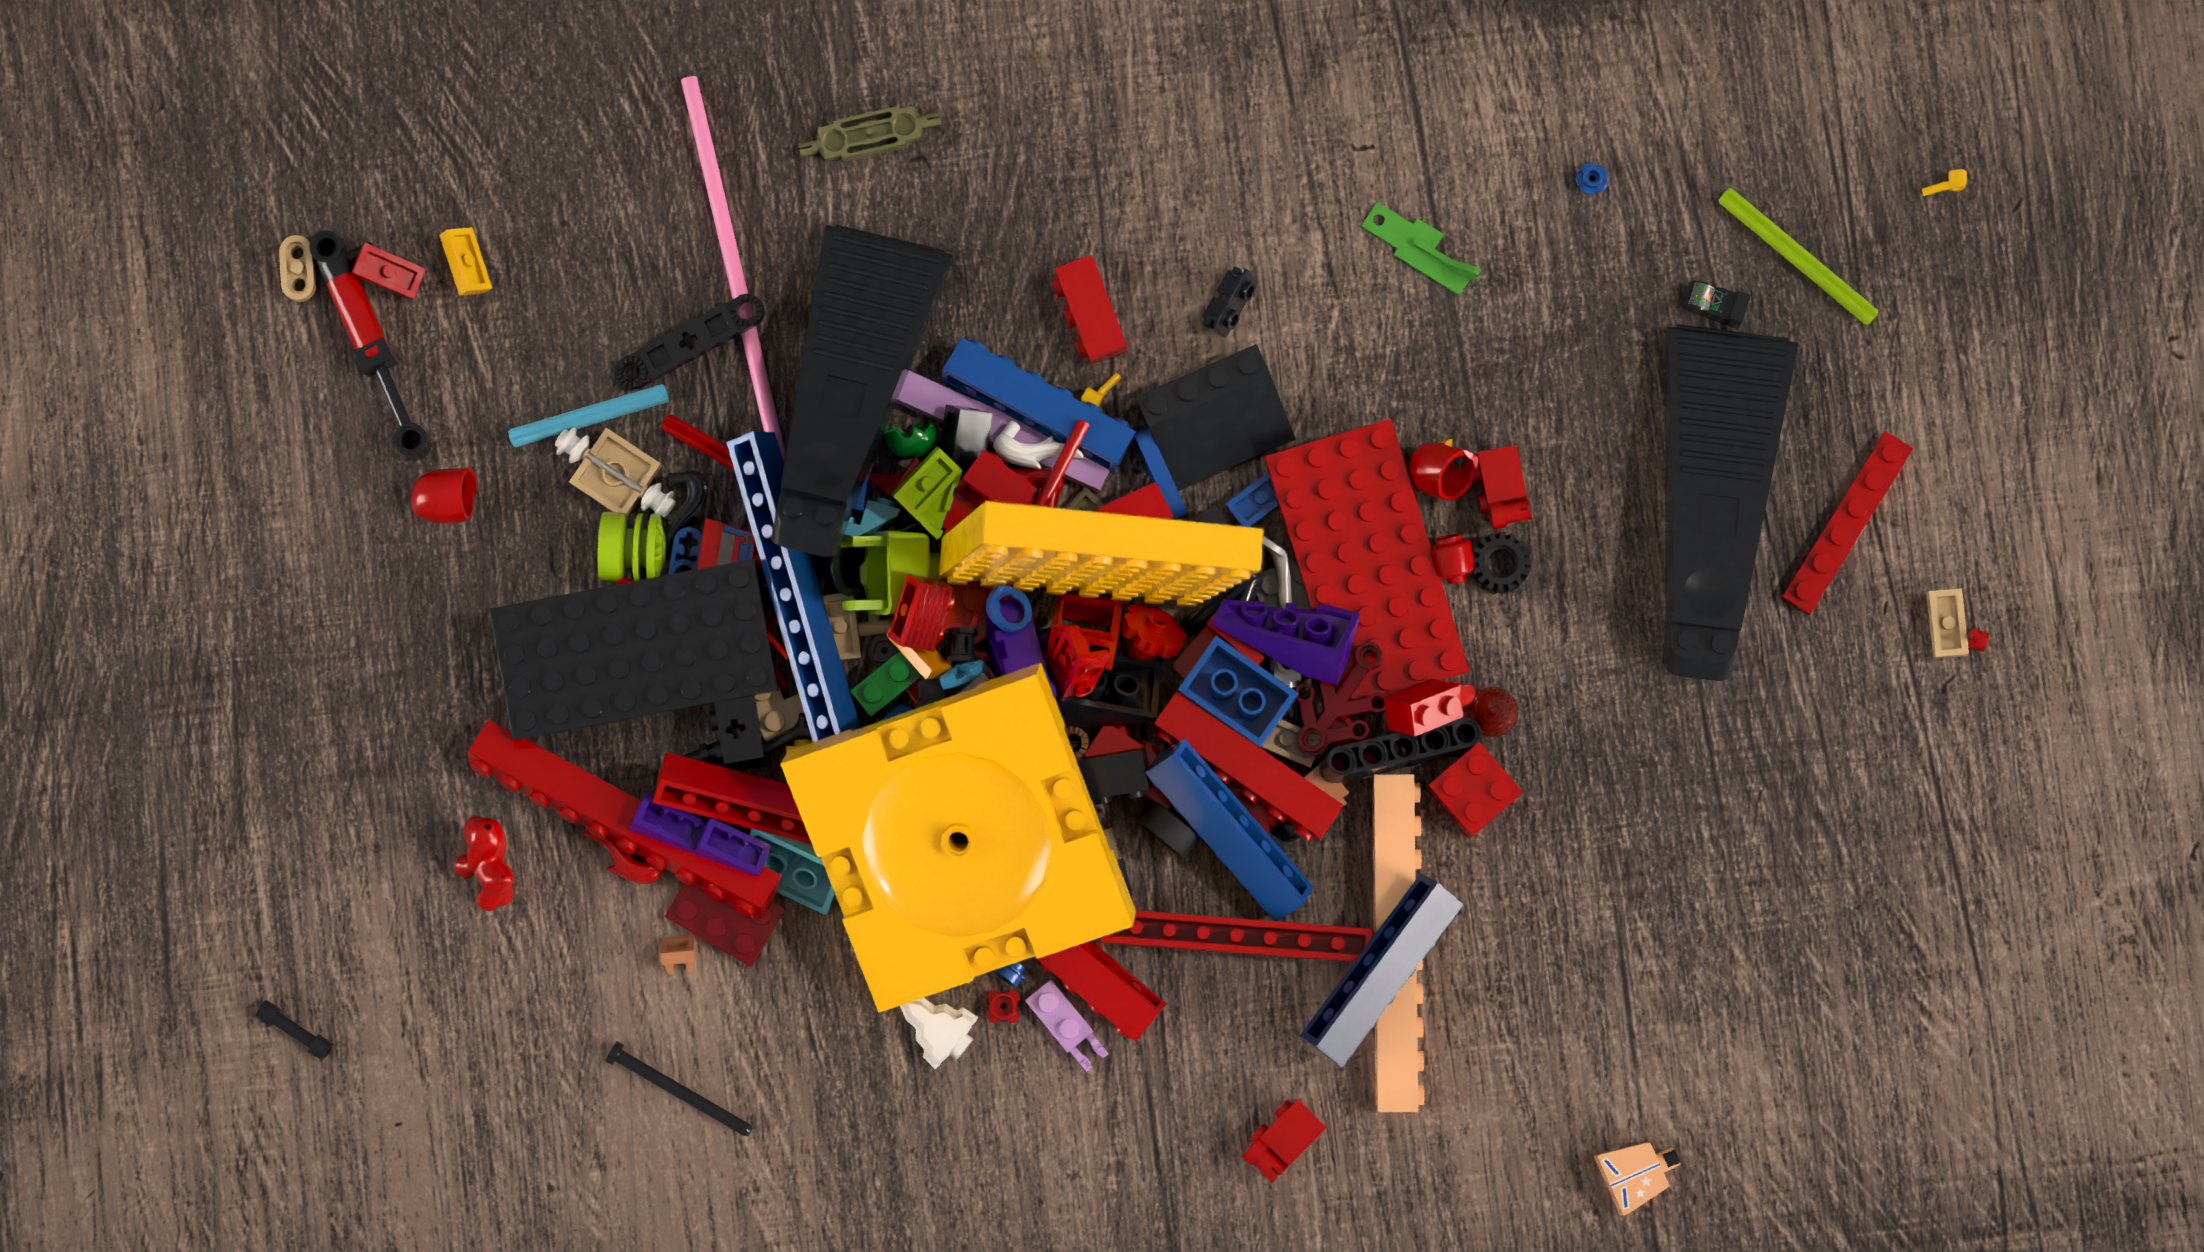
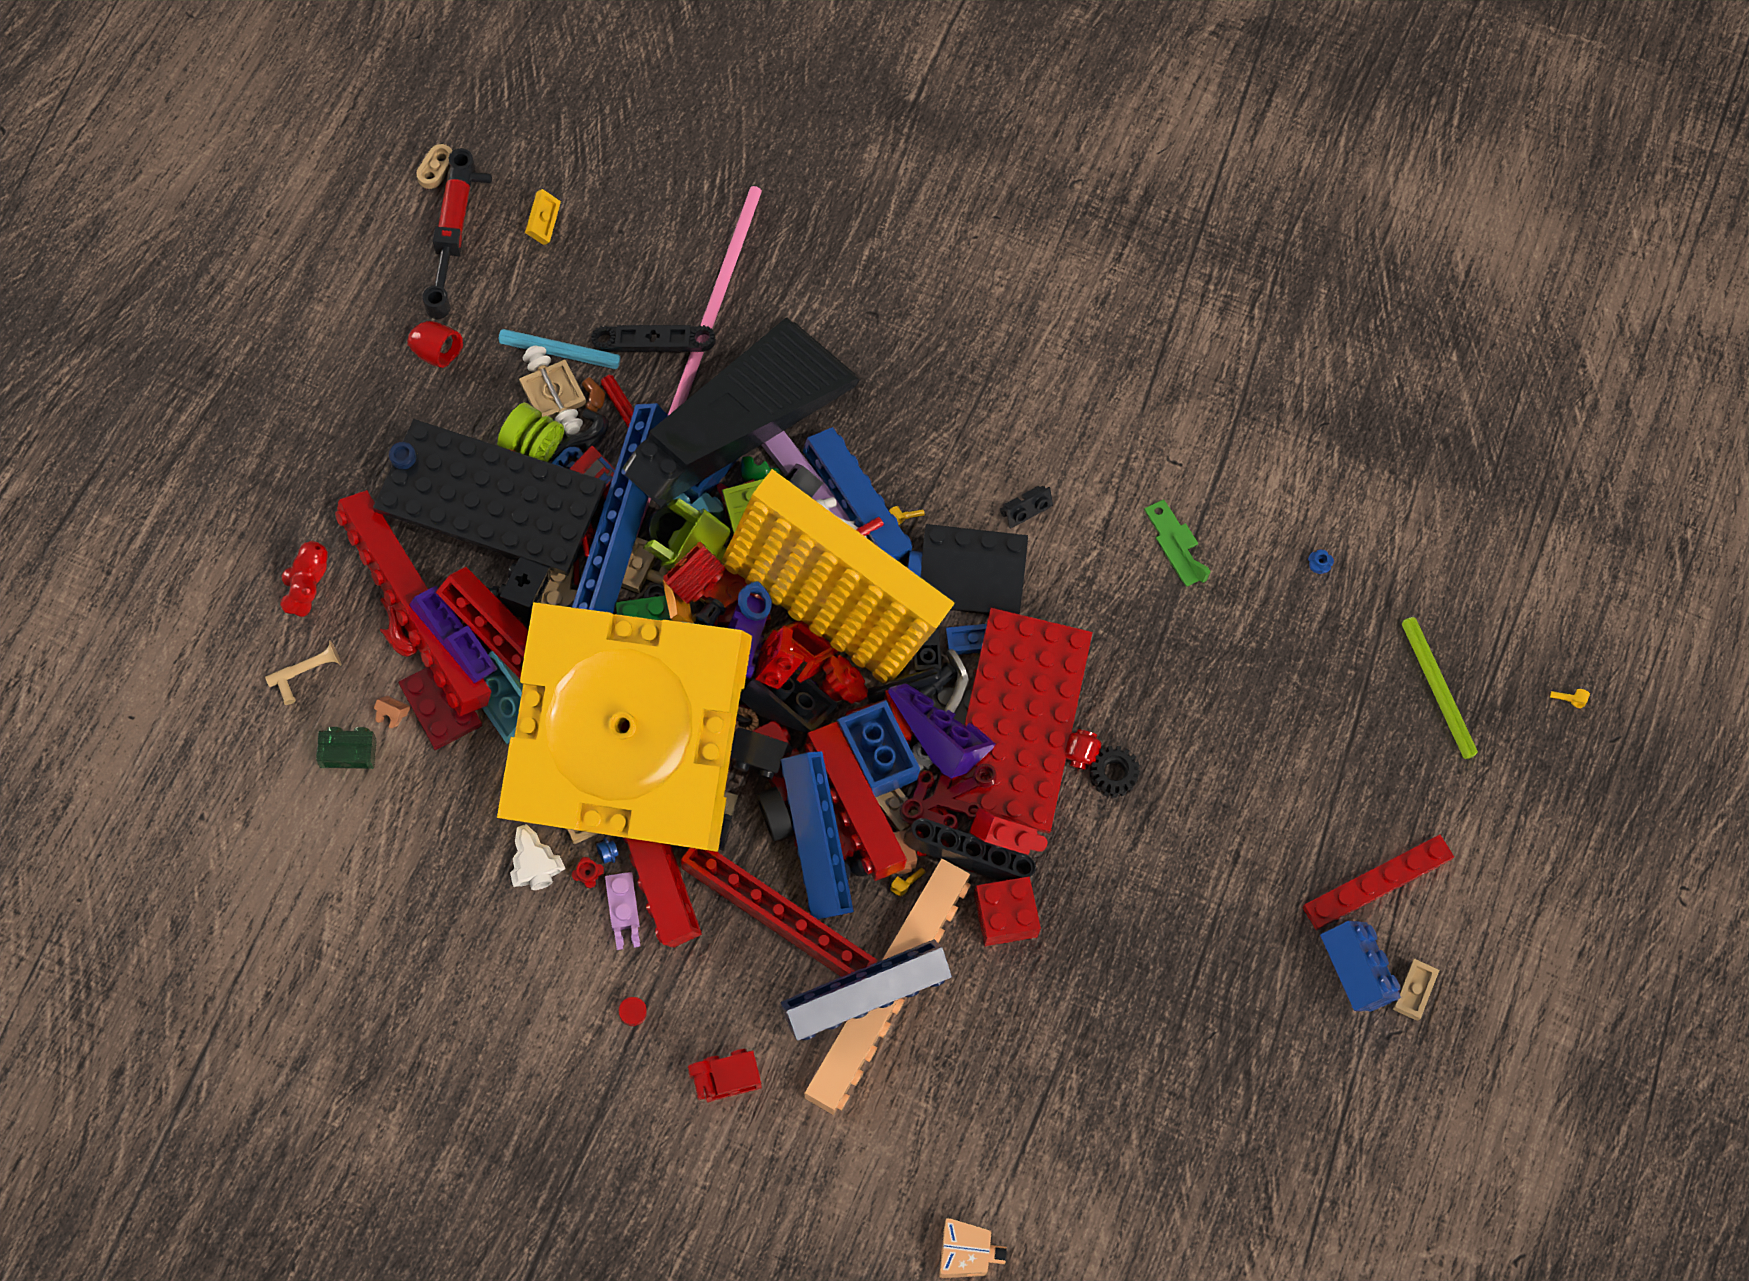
camera: 25 degrees right, 15 degrees down
(317, 1046) = (98, 599): black bar -> none
(388, 271) = (489, 195): plate -> none
(509, 662) = (402, 455): none -> dark blue tile
(532, 985) = (281, 676): none -> tan piece
(659, 1024) = (346, 748): none -> clear green brick
(667, 448) = (596, 396): none -> dark orange arm
(677, 1089) = (306, 753): black bar -> none
(903, 126) = (850, 281): olive piece -> none
(1089, 310) = (928, 459): red brick -> none
(1143, 1127) = (632, 1011): none -> red tile
(1344, 826) = (900, 886): none -> yellow hand
(1434, 472) = (1103, 685): red piece -> none
(1493, 711) = (1052, 868): clear red helmet -> none
(1501, 487) = (1145, 719): red hinge -> none
(1716, 303) = (1364, 686): leg -> none
(1720, 454) = (1312, 783): black brick -> none
(1880, 636) = (1361, 965): none -> blue brick
(1978, 639) = (1432, 1013): red hand -> none

